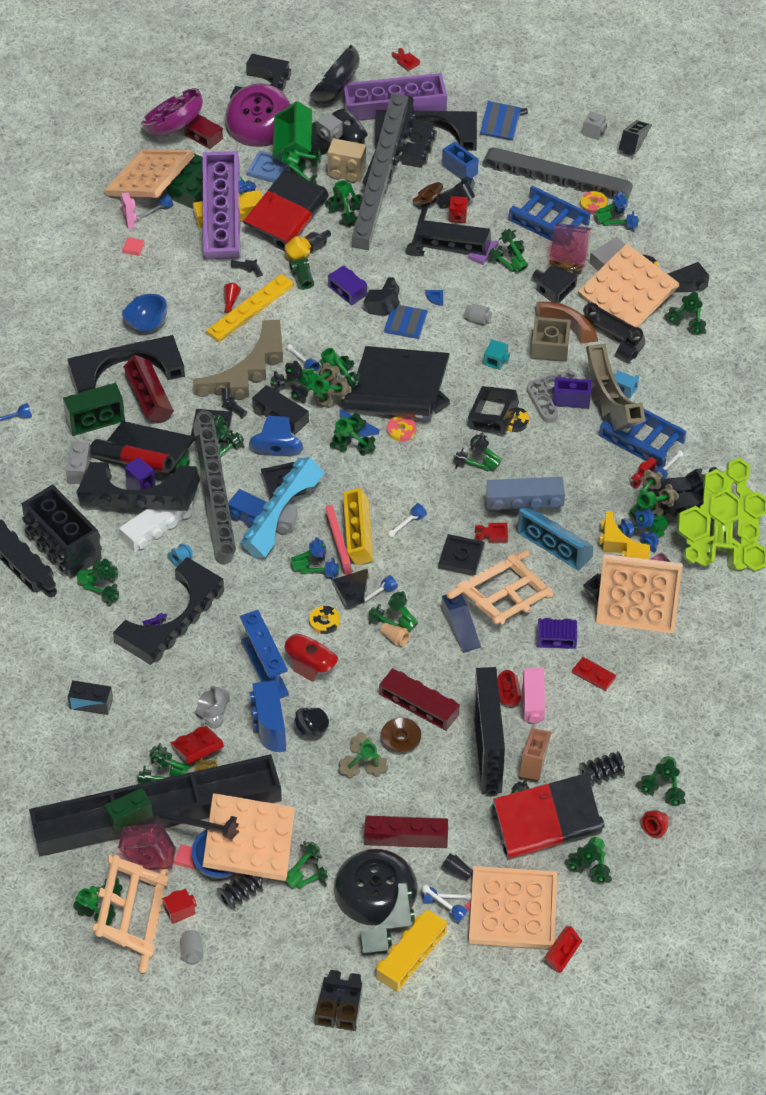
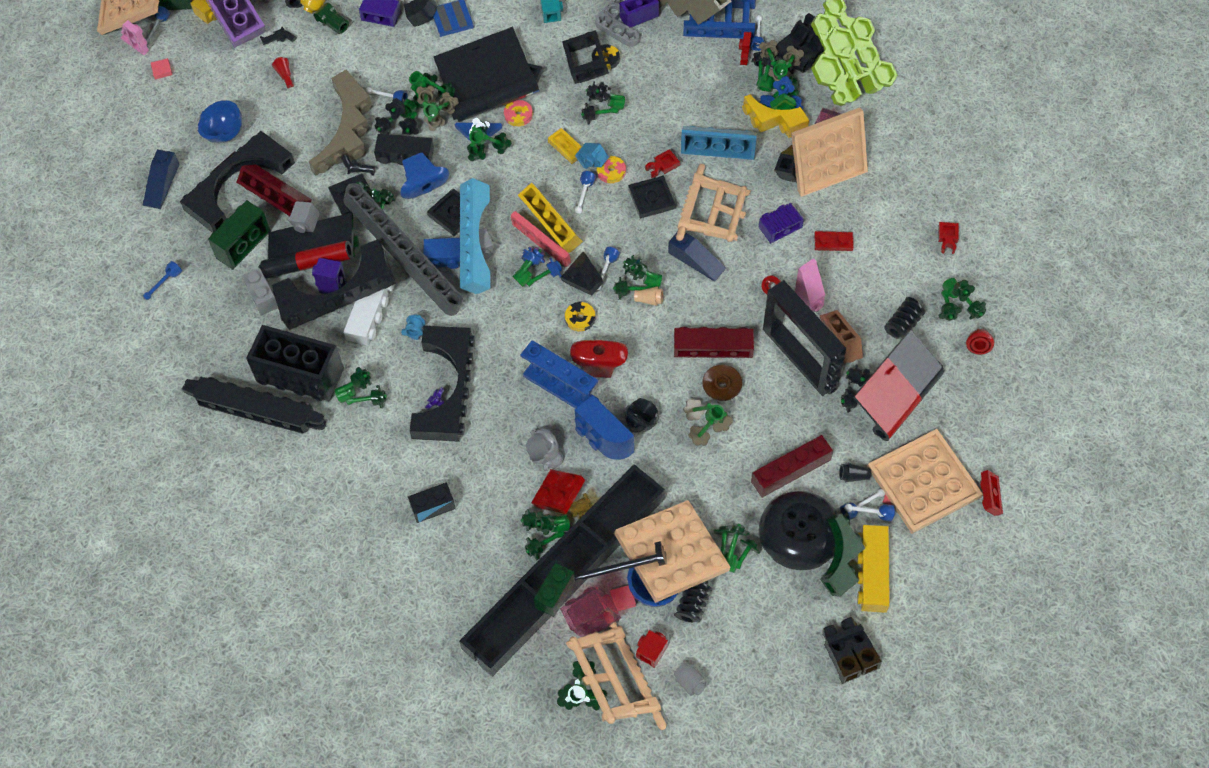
camera: 30 degrees left, 10 degrees up
(67, 333) = (160, 178): none -> dark blue slope
(154, 420) = (304, 217): none -> light grey brick
(249, 308) = (307, 73): yellow plate -> none
(421, 475) = (564, 145): none -> yellow plate
(434, 493) = (592, 155): none -> dark azure brick
(441, 521) = (615, 175): none -> yellow piece
(525, 493) = (670, 116): sand blue slope -> none
(585, 857) = (956, 397): dark green plant -> none
(635, 533) = (783, 102): none -> green tile
(700, 721) = (949, 235): none -> red plate

